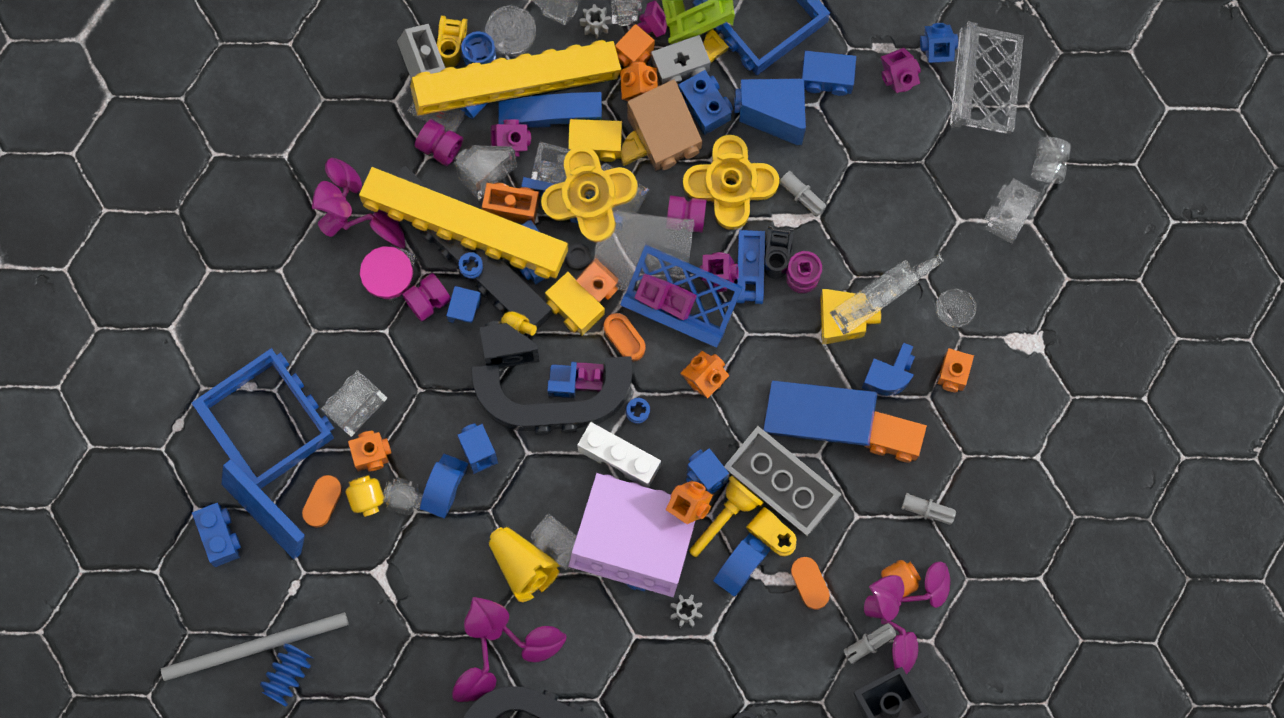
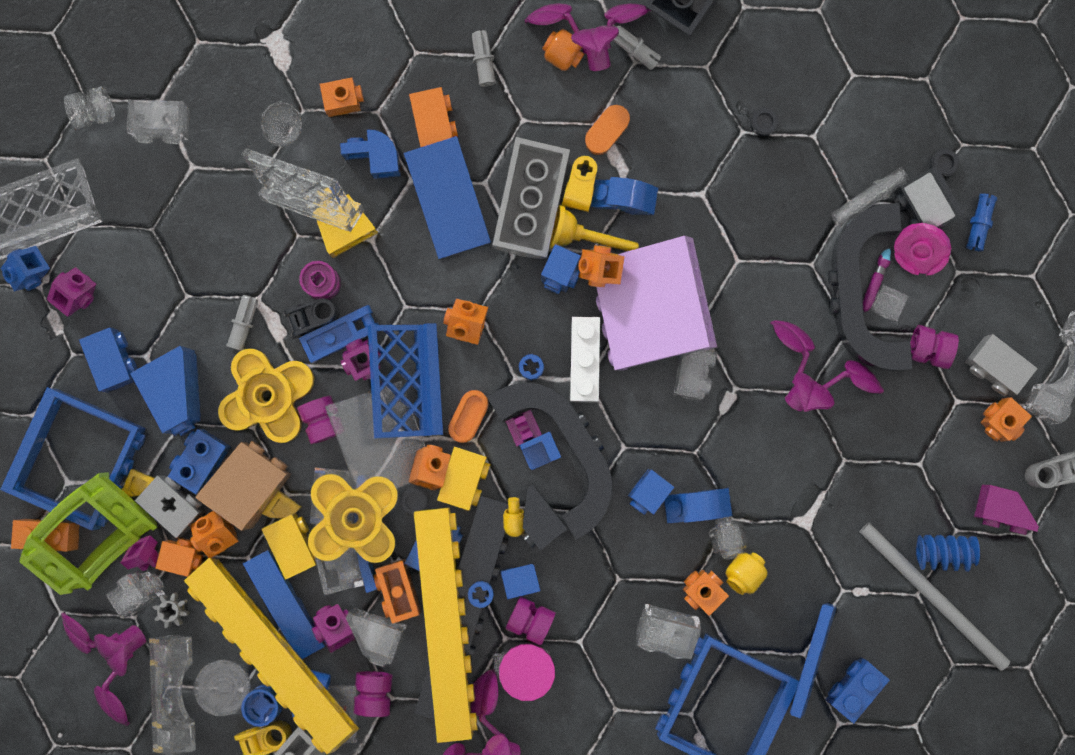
camera: 110 degrees left, 10 degrees up
(322, 501) = (771, 610): orange tile -> none
(522, 563) = (731, 395): yellow cone -> none
(665, 296) = (413, 396): magenta slope -> none
(689, 604) = (690, 218): light grey gear -> none

